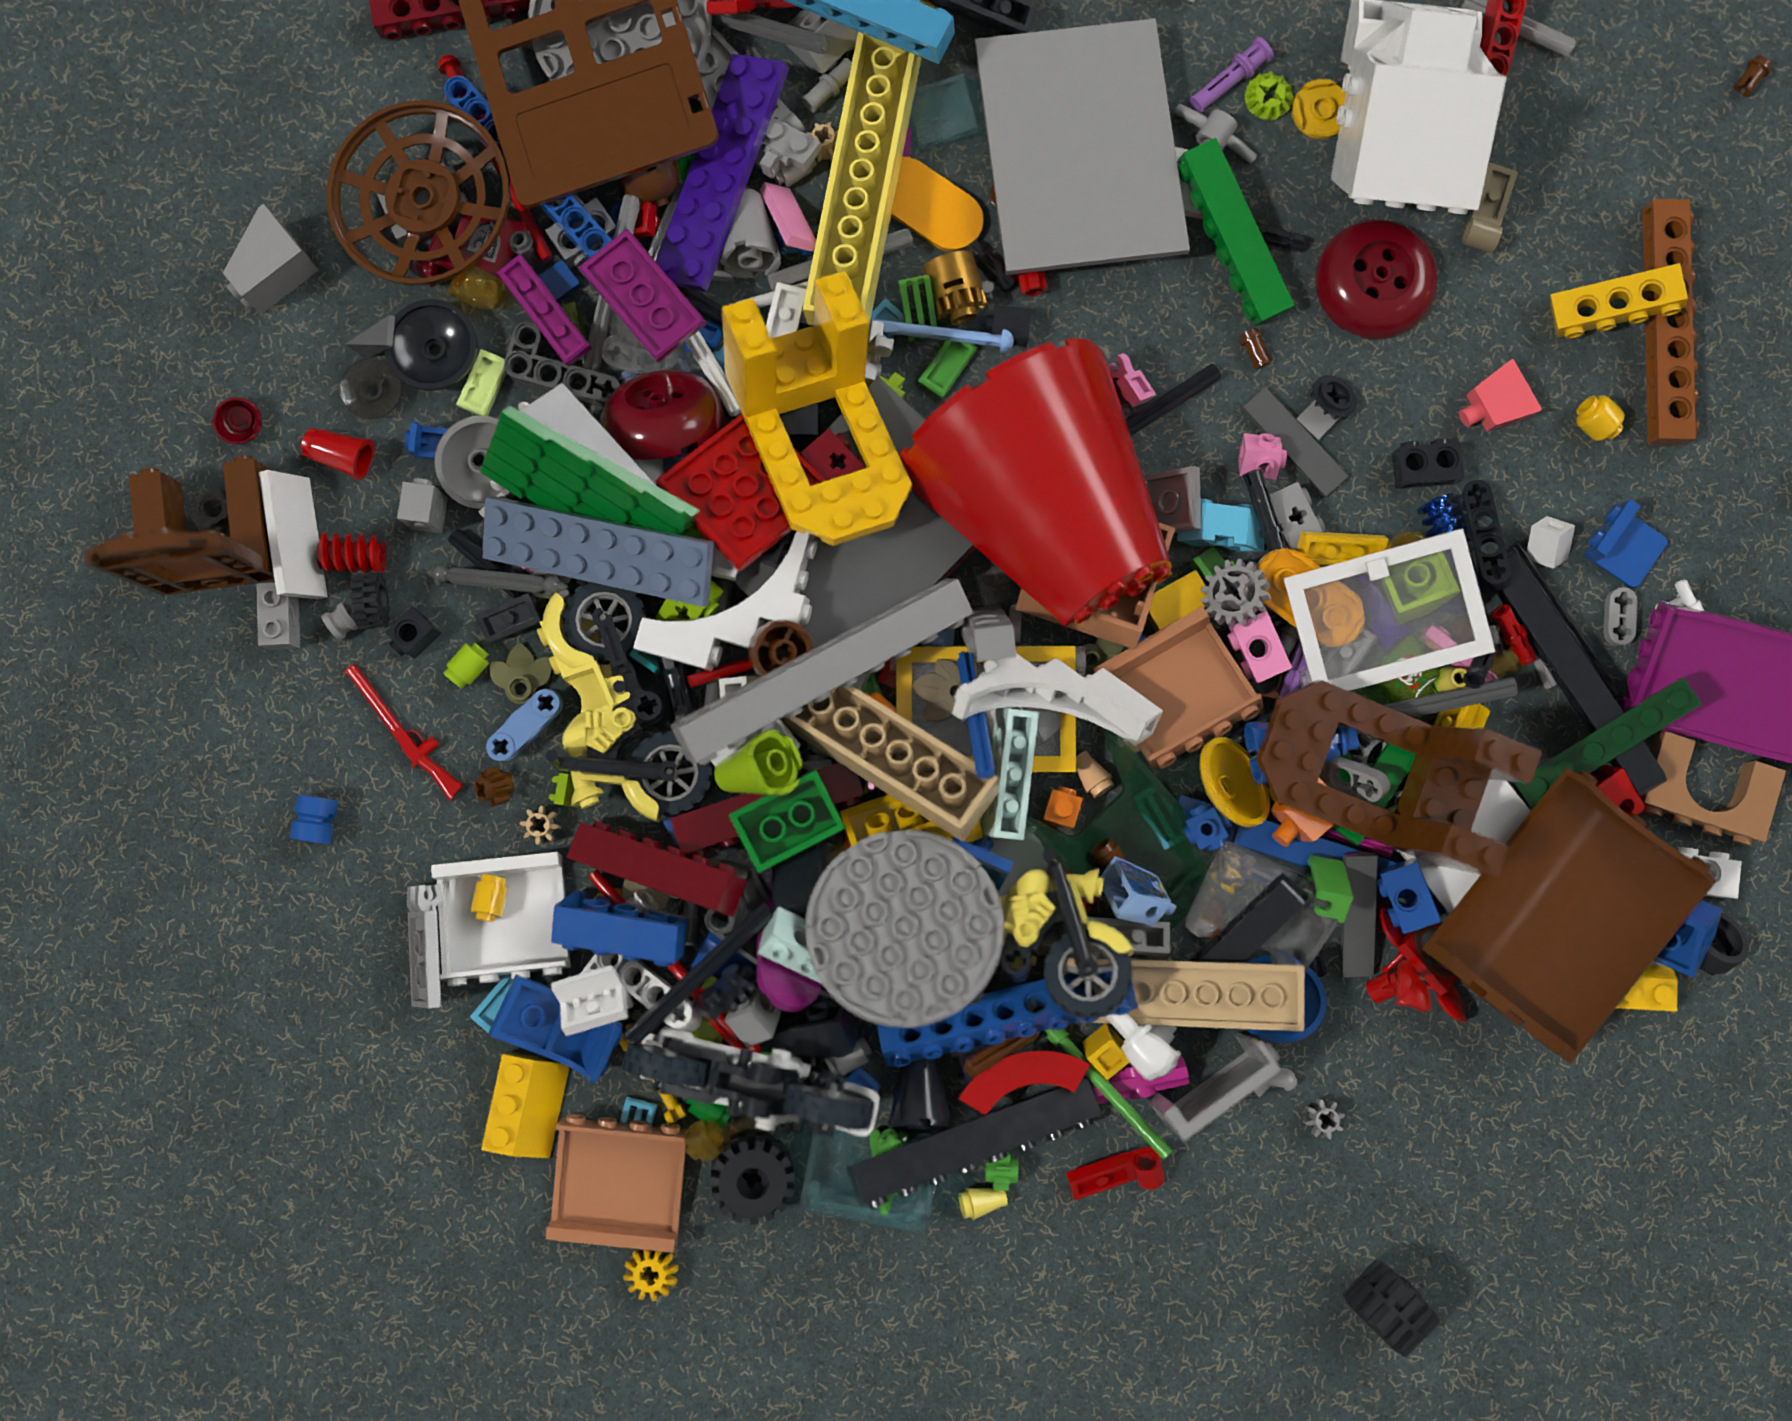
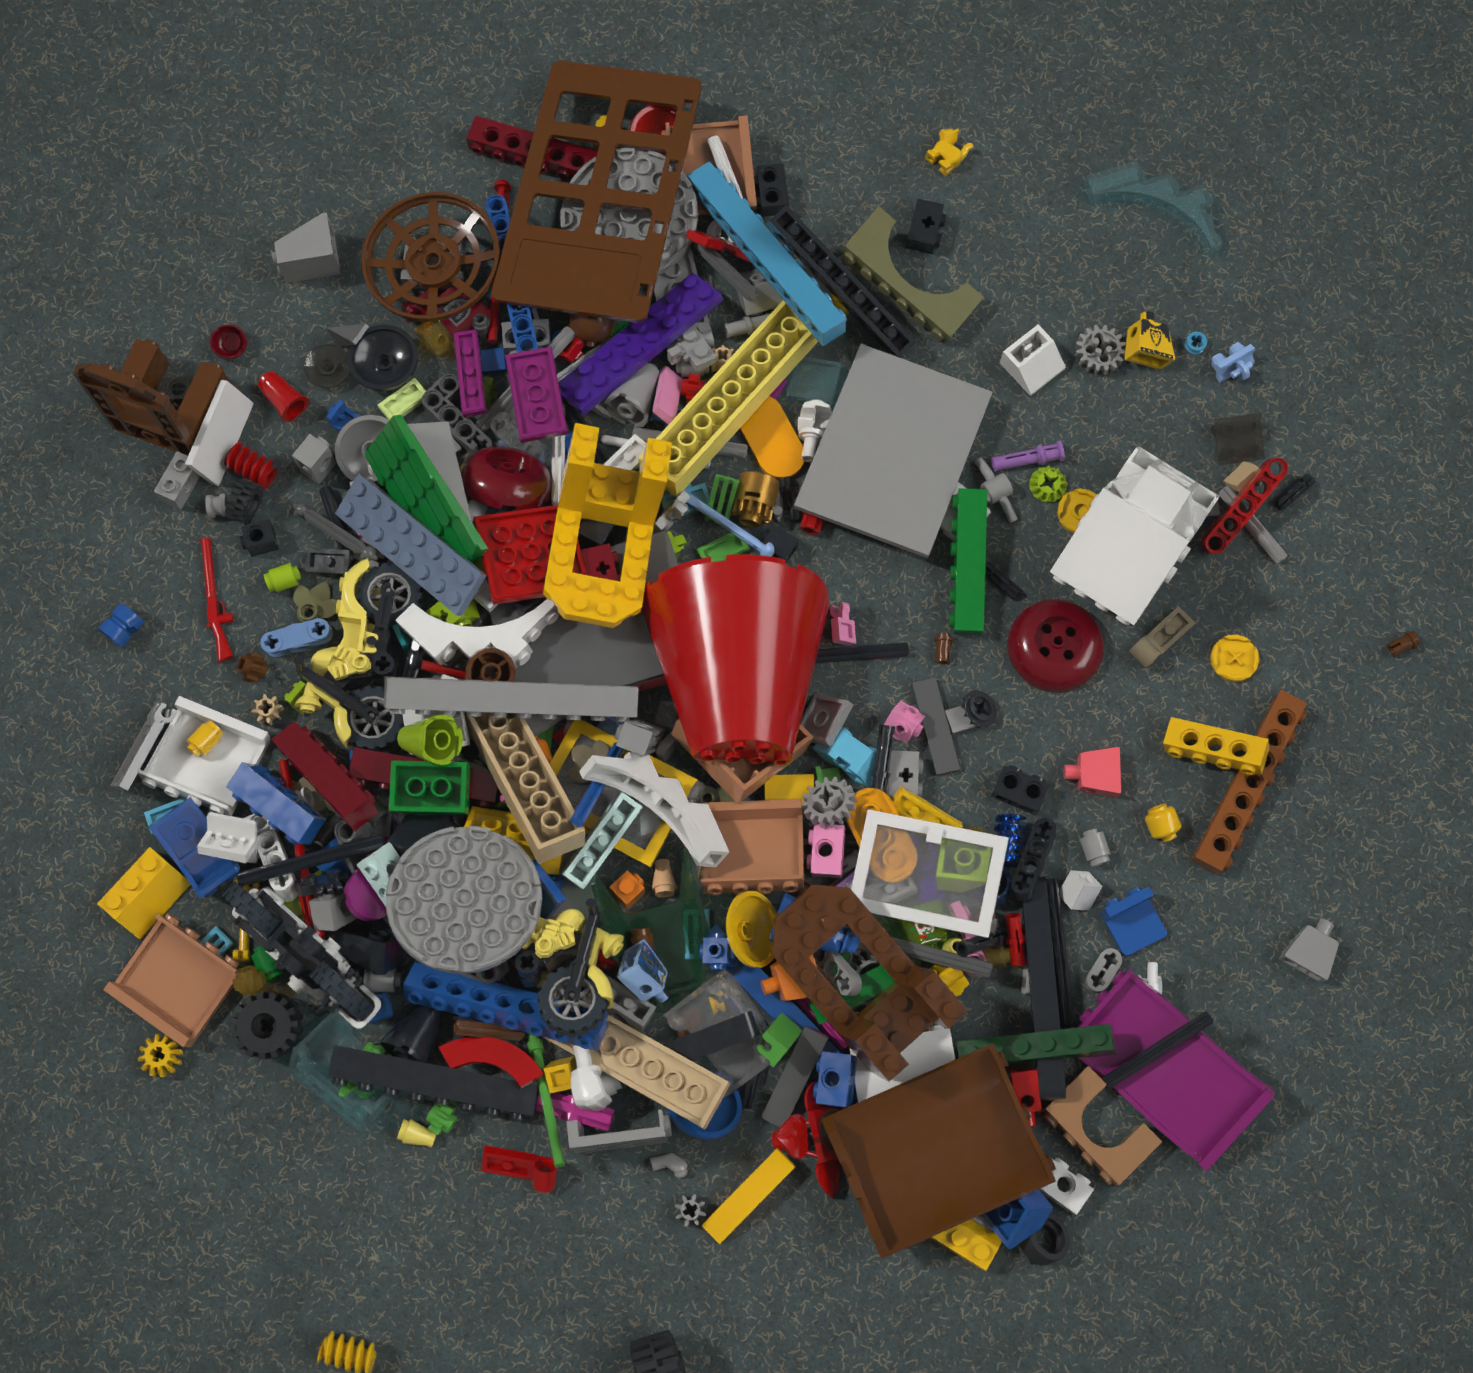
camera: 30 degrees right, 10 degrees down
(809, 193) = (691, 386): none -> red gear
(972, 167) = (811, 426): none -> white piece
(1378, 1068) = (748, 1196): none -> yellow slope
(1542, 485) = (1095, 847): none -> light grey brick
(1578, 189) = (1234, 658): none -> yellow tile
(1738, 674) = (1158, 1049): none -> black axle

